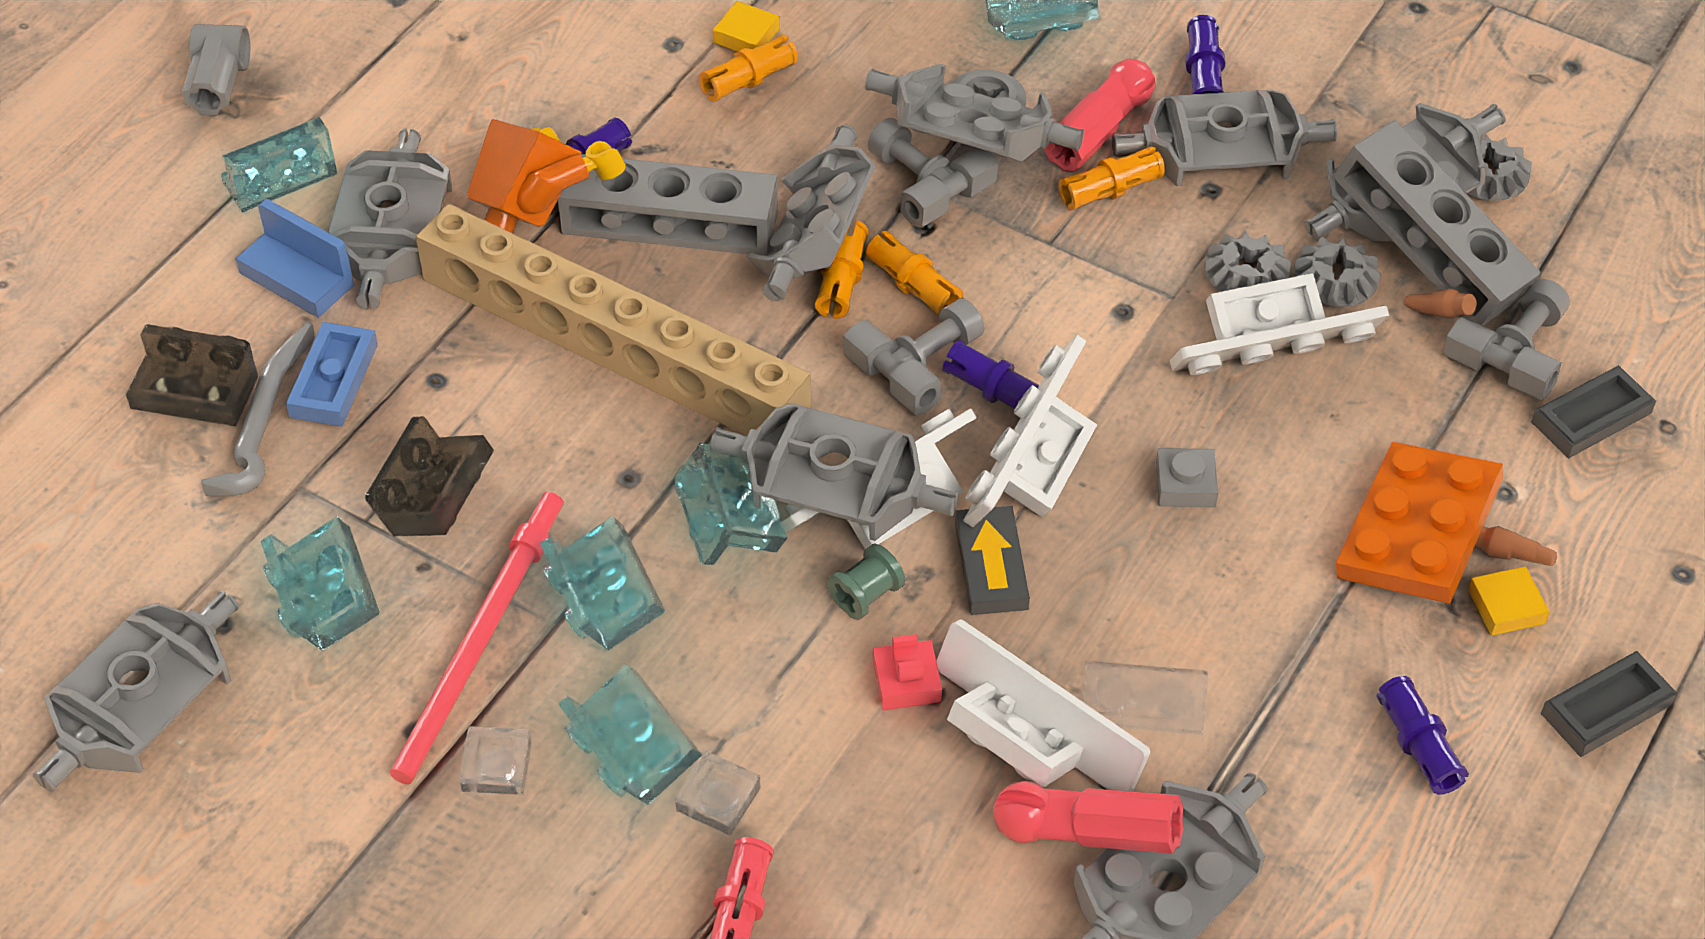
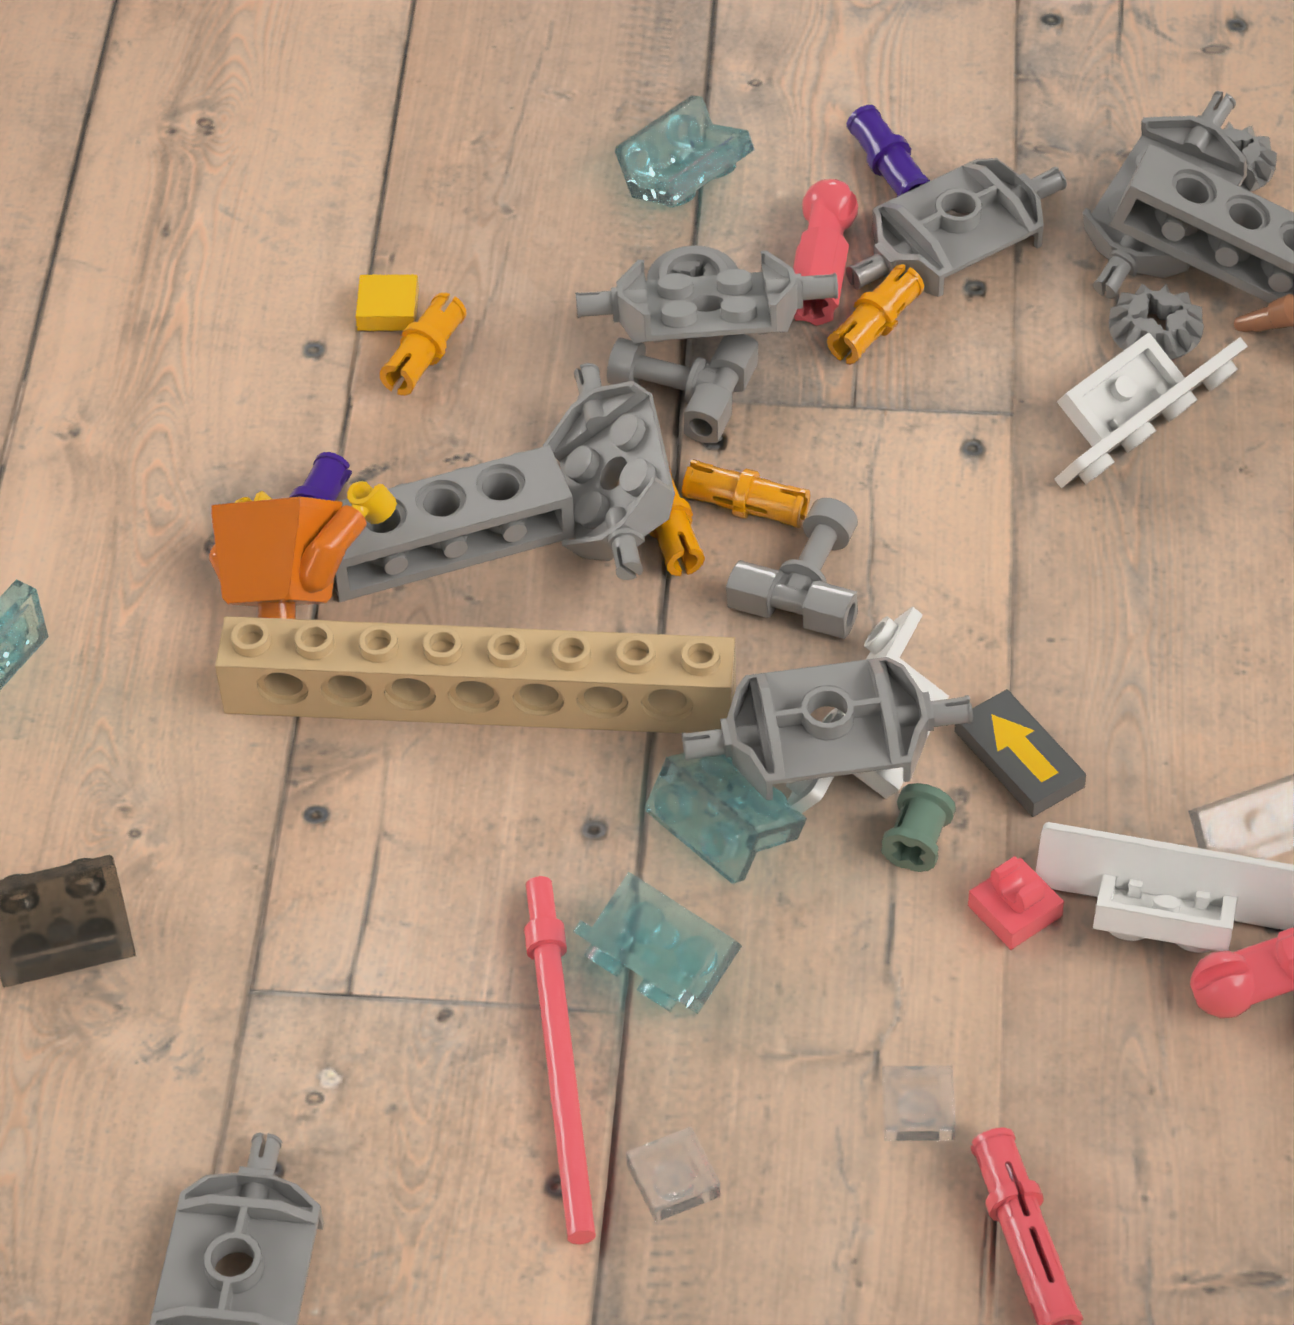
camera: 25 degrees left, 0 degrees up
(256, 419) = (156, 942): light grey piece -> none
(297, 260) = (78, 747): medium blue panel -> none
(320, 584) = (364, 1076): clear light blue bracket -> none
(332, 374) = (208, 854): medium blue plate -> none
(383, 240) = (151, 692): light grey plate -> none
(427, 480) = (400, 921): clear smoke bracket -> none
(631, 736) = (797, 1083): clear light blue bracket -> none
(994, 379) = (908, 569): dark purple pin -> none
(1042, 447) = (1000, 612): white bracket -> none
(1186, 477) = (1150, 589): light grey plate -> none
(1223, 260) = (1041, 345): light grey gear -> none

